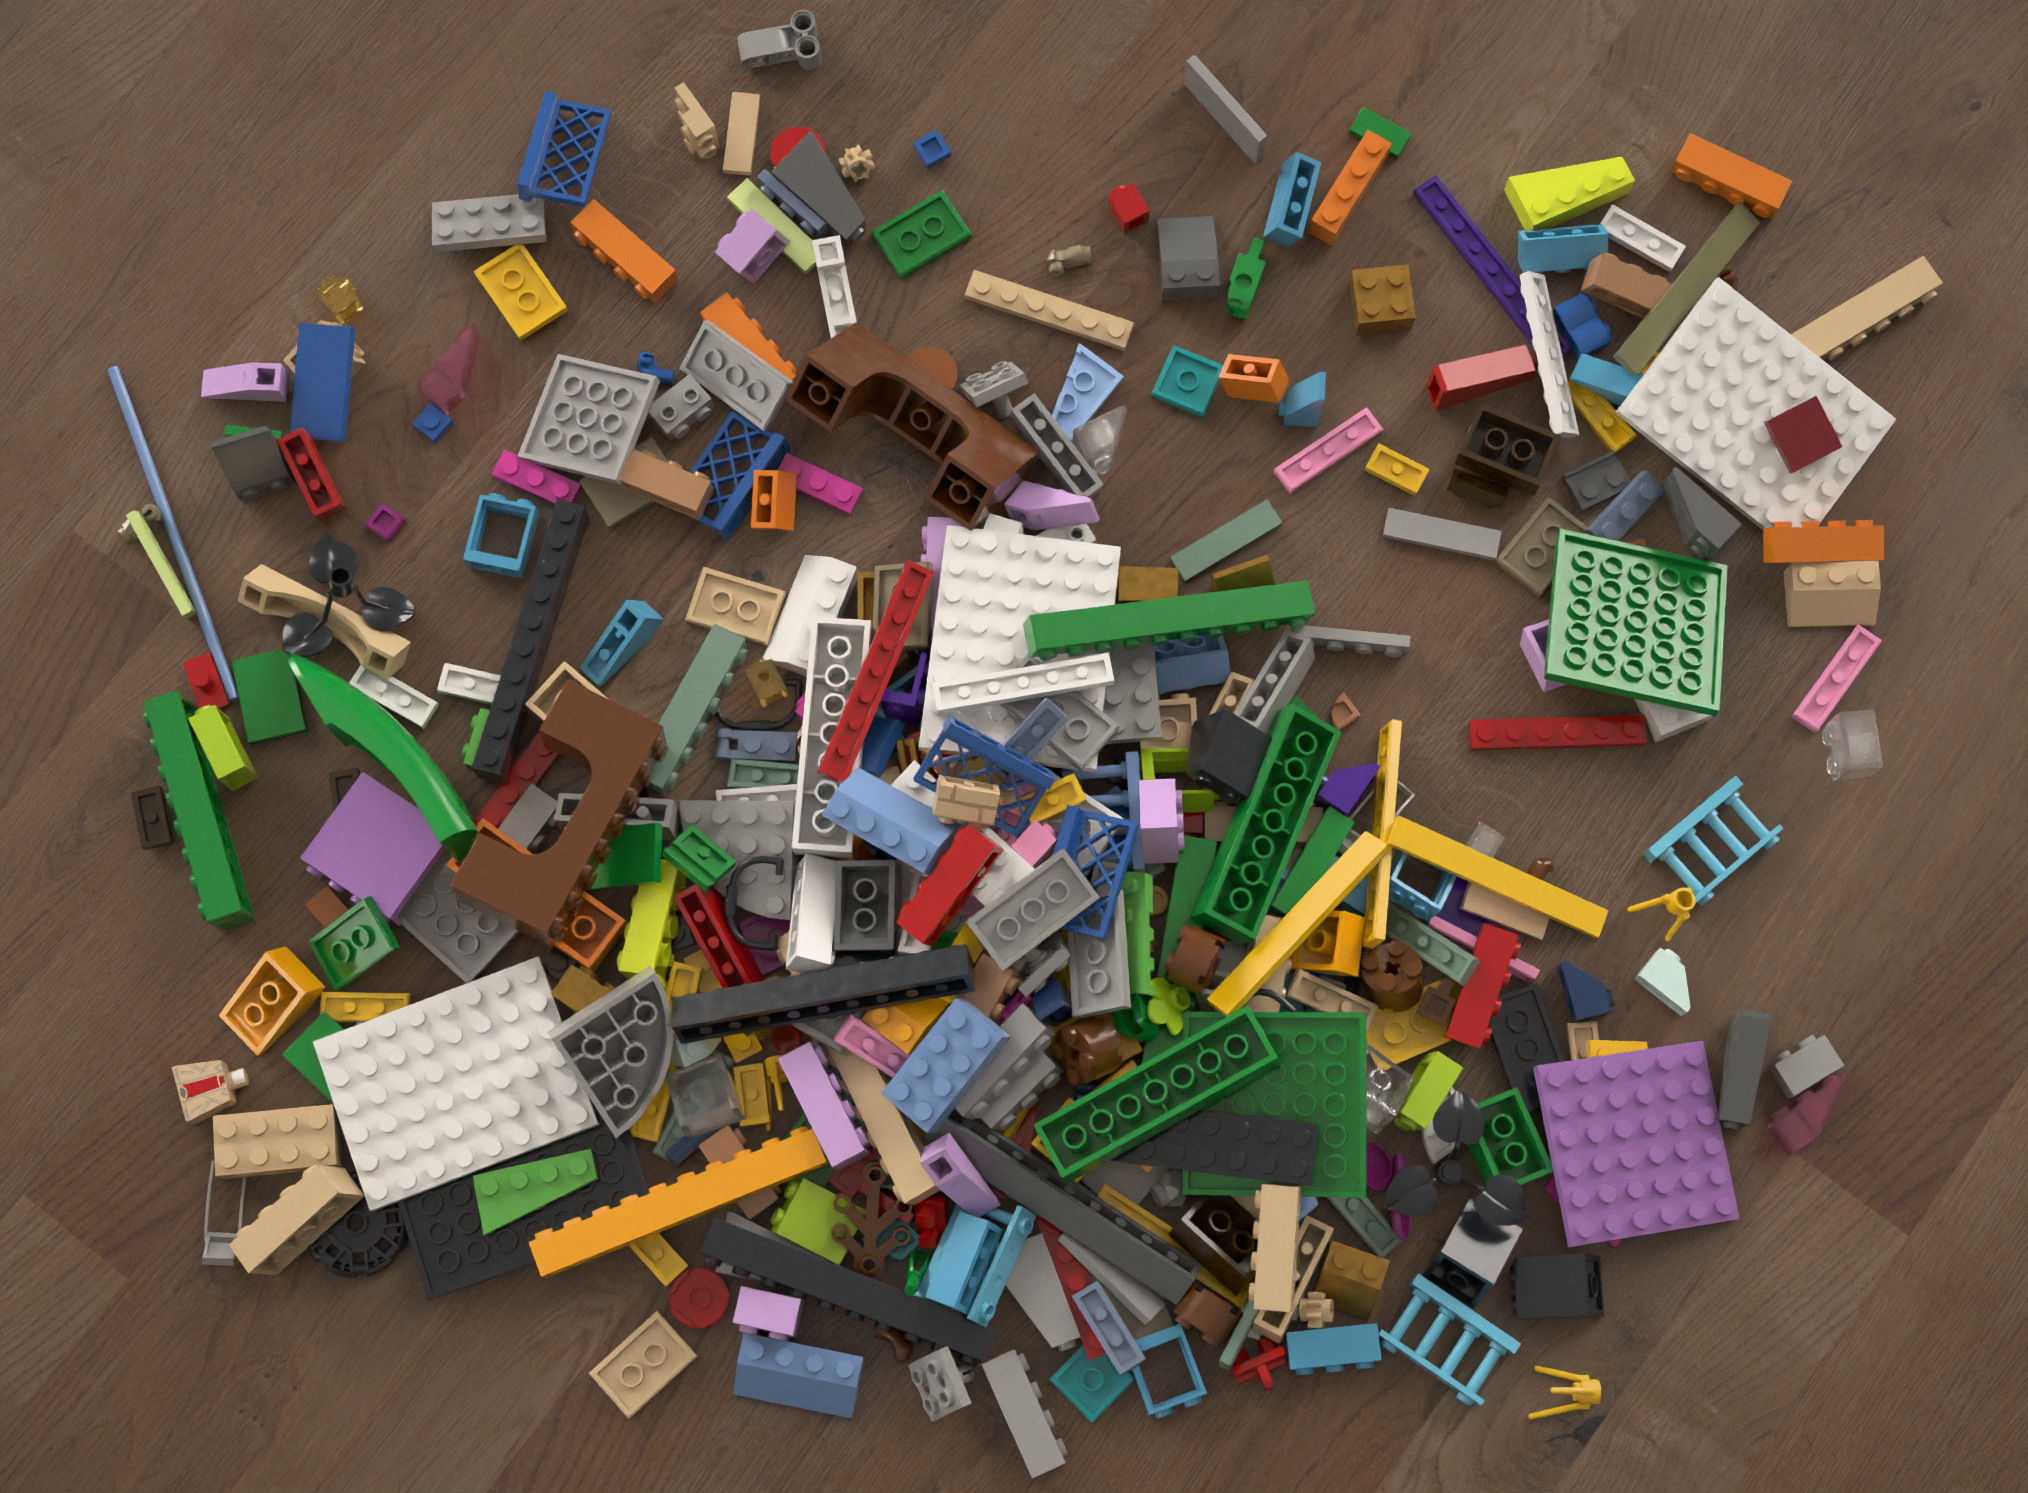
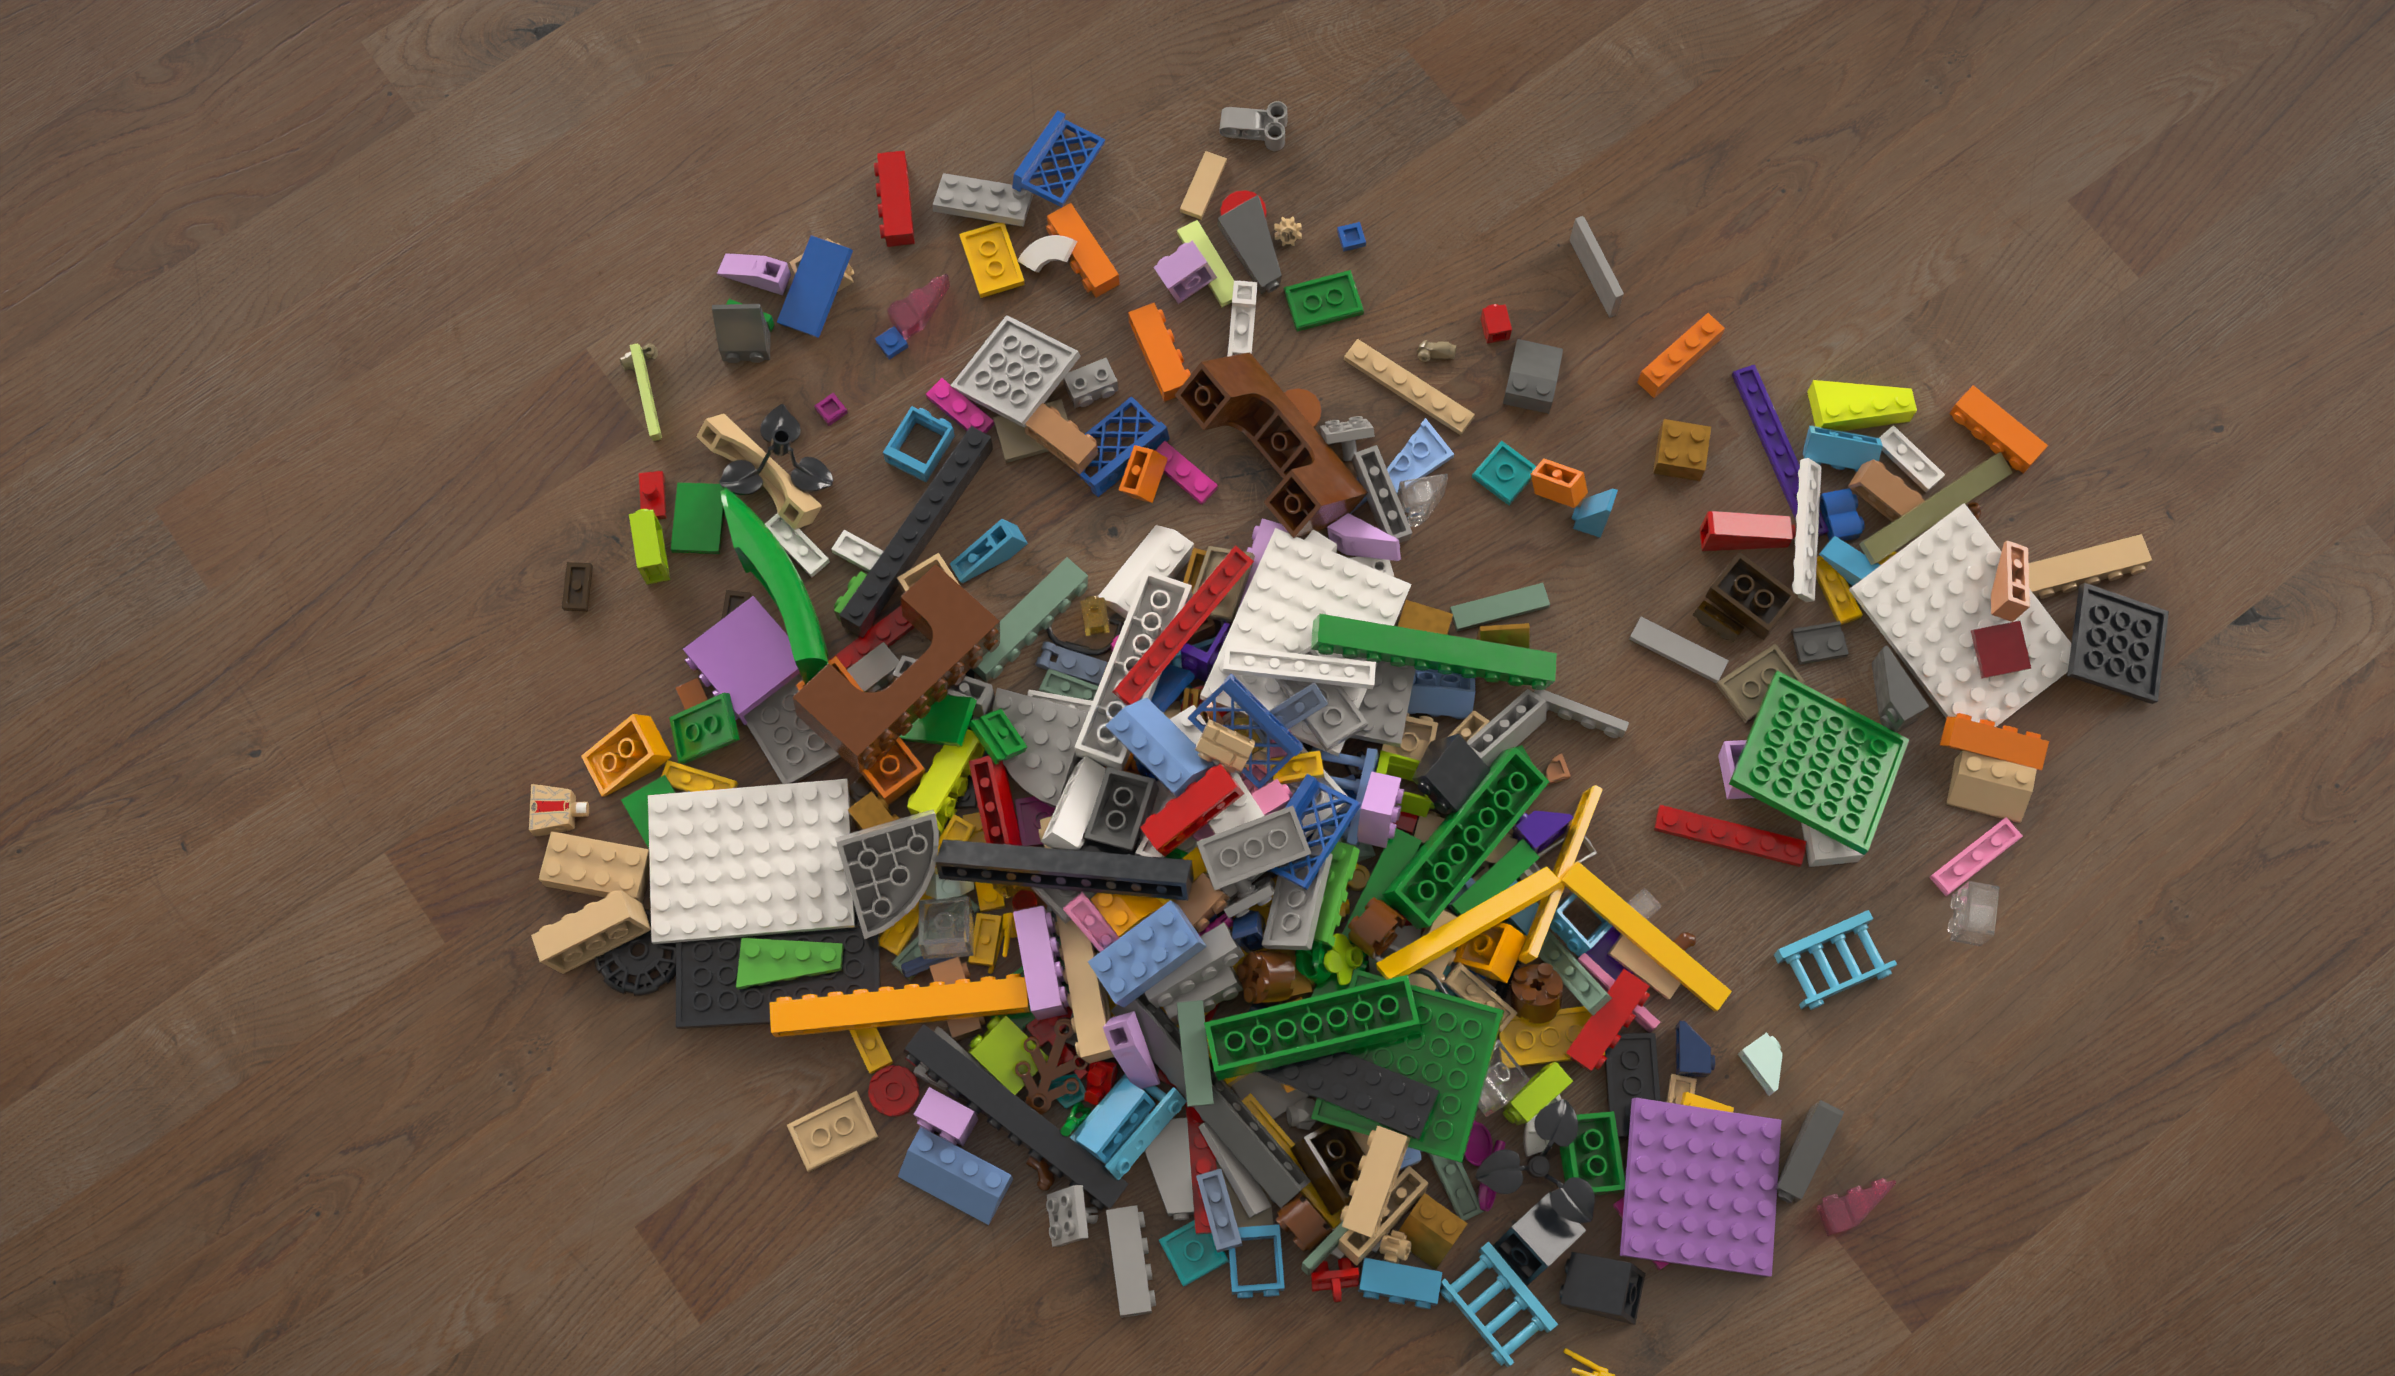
camera: 15 degrees right, 5 degrees down
(173, 534) = (663, 374): medium blue piece -> none
(198, 812) = (614, 592): green brick -> none
(216, 1243) = (521, 938): light grey piece -> none
(311, 474) = (784, 354): red brick -> none
(338, 298) = (847, 226): clear yellow brick -> none
(384, 248) = (895, 198): none -> red brick
(582, 263) = (1046, 250): none -> white tile
(648, 366) = (1074, 342): blue arm -> none
(697, 126) = (1169, 168): tan plate -> none
(731, 901) = (1014, 778): black piece -> none
(735, 605) = (1089, 549): tan tile -> none
(736, 375) = (1142, 369): light grey tile -> none
(792, 205) = (1226, 249): sand blue plate -> none
(1032, 1161) = (1195, 1053): none -> sand green tile
(1245, 280) = (1575, 405): green piece -> none
(1292, 200) = (1630, 352): dark azure brick -> none
(1328, 450) = (1604, 558): bright pink tile -> none
(1391, 132) = (1731, 325): green tile -> none
(1397, 469) = (1656, 588): yellow plate -> none
(1437, 1003) = (1567, 1025): reddish brown plate -> none
(1626, 508) = (1838, 670): sand blue plate -> none
(1677, 903) = (1789, 999): yellow plant -> none
(1796, 357) = (2011, 584): none -> nougat slope
(1806, 1066) = (1862, 1165): light grey brick -> none
(1930, 389) = (2118, 643): none -> black plate

